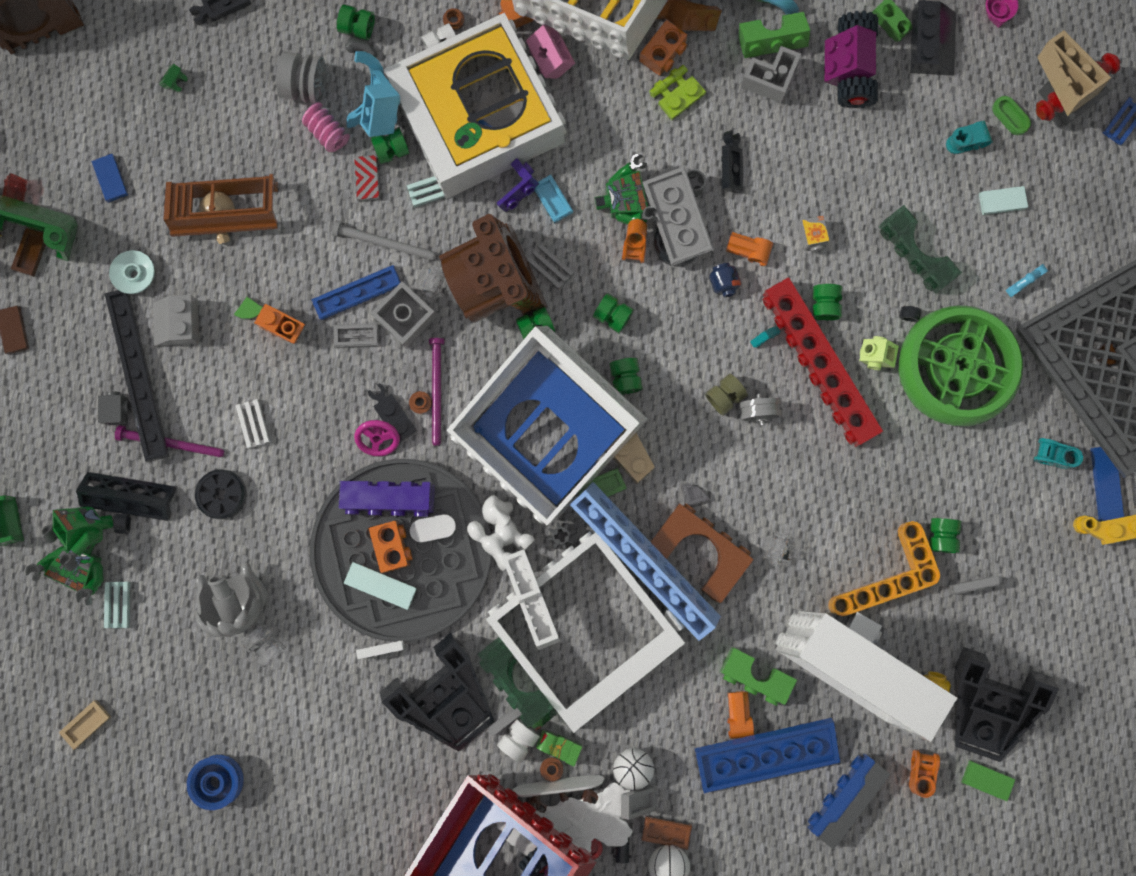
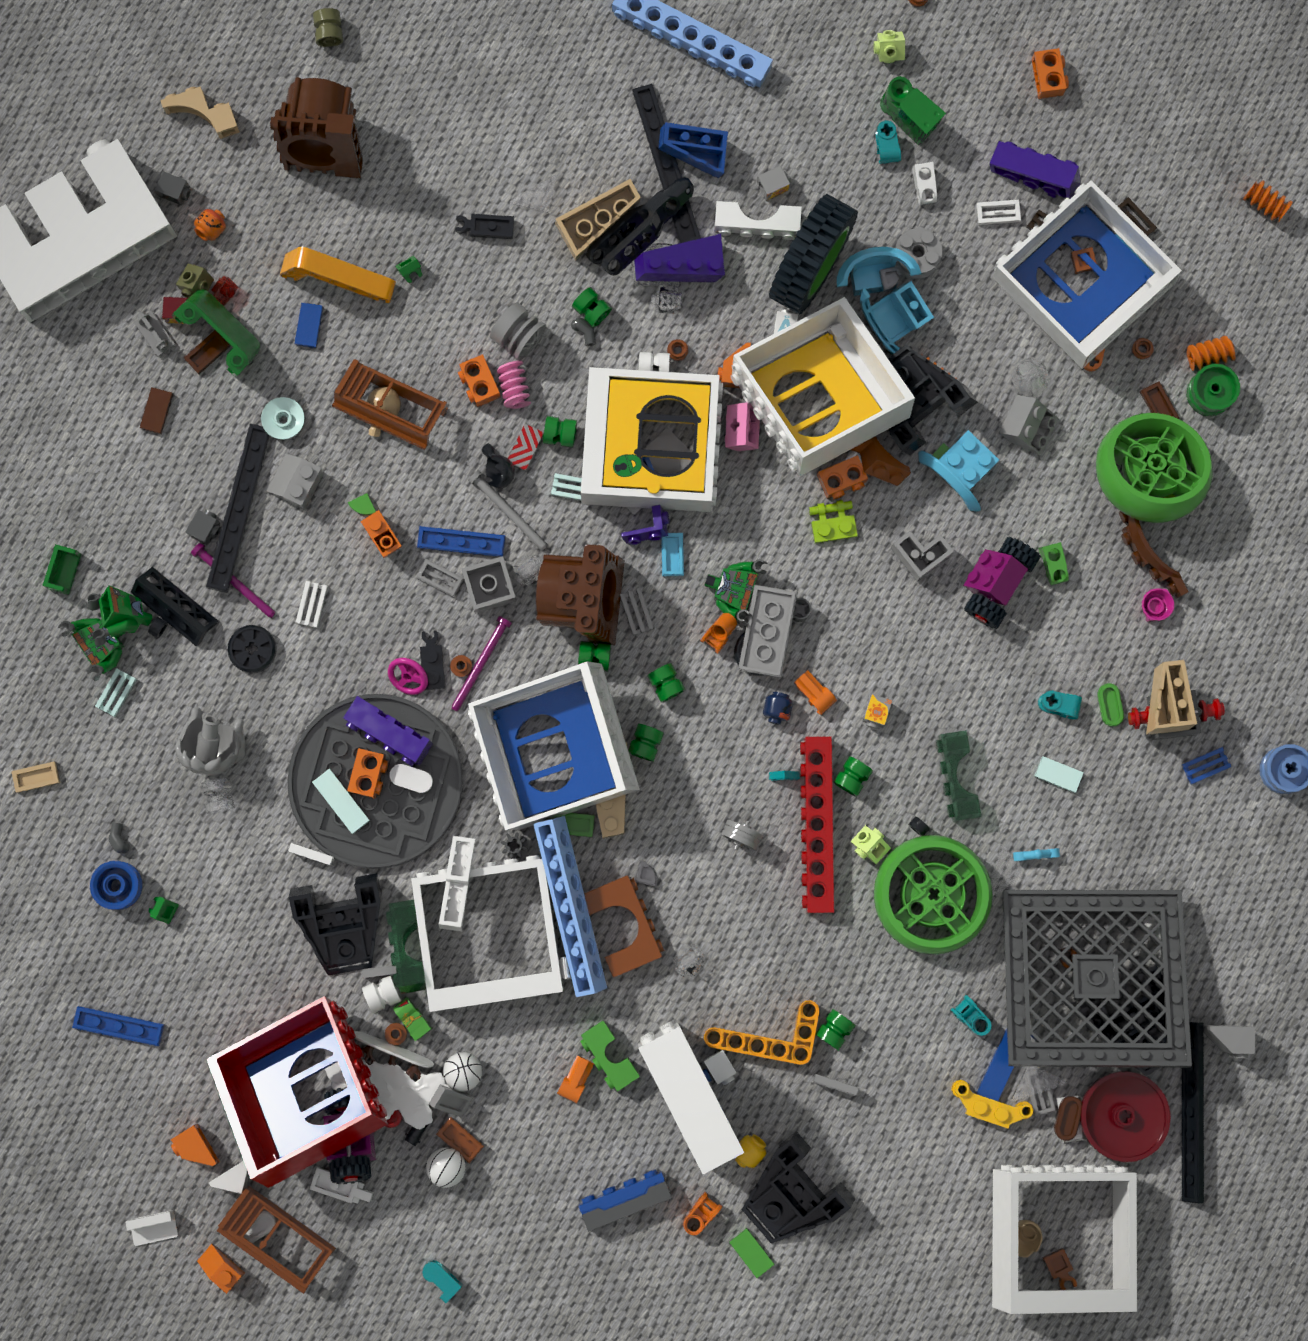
camera: 25 degrees right, 0 degrees up
(79, 114) = (308, 262): none -> light orange beam
(192, 740) = (115, 839): none -> dark grey arm
(272, 779) = (163, 909): none -> green tile
(294, 139) = (483, 379): none -> orange brick
(353, 207) = (498, 468): none -> black hair
(380, 101) = (570, 393): medium azure piece -> none
(505, 532) = (469, 816): white animal -> none
(726, 394) = (721, 806): olive wheel -> none
(732, 163) = (843, 610): black plate -> none
(758, 40) = (927, 518): bright green arch -> none
(767, 755) = (579, 1124): blue plate -> none
(933, 38) = (1082, 601): black slope -> none

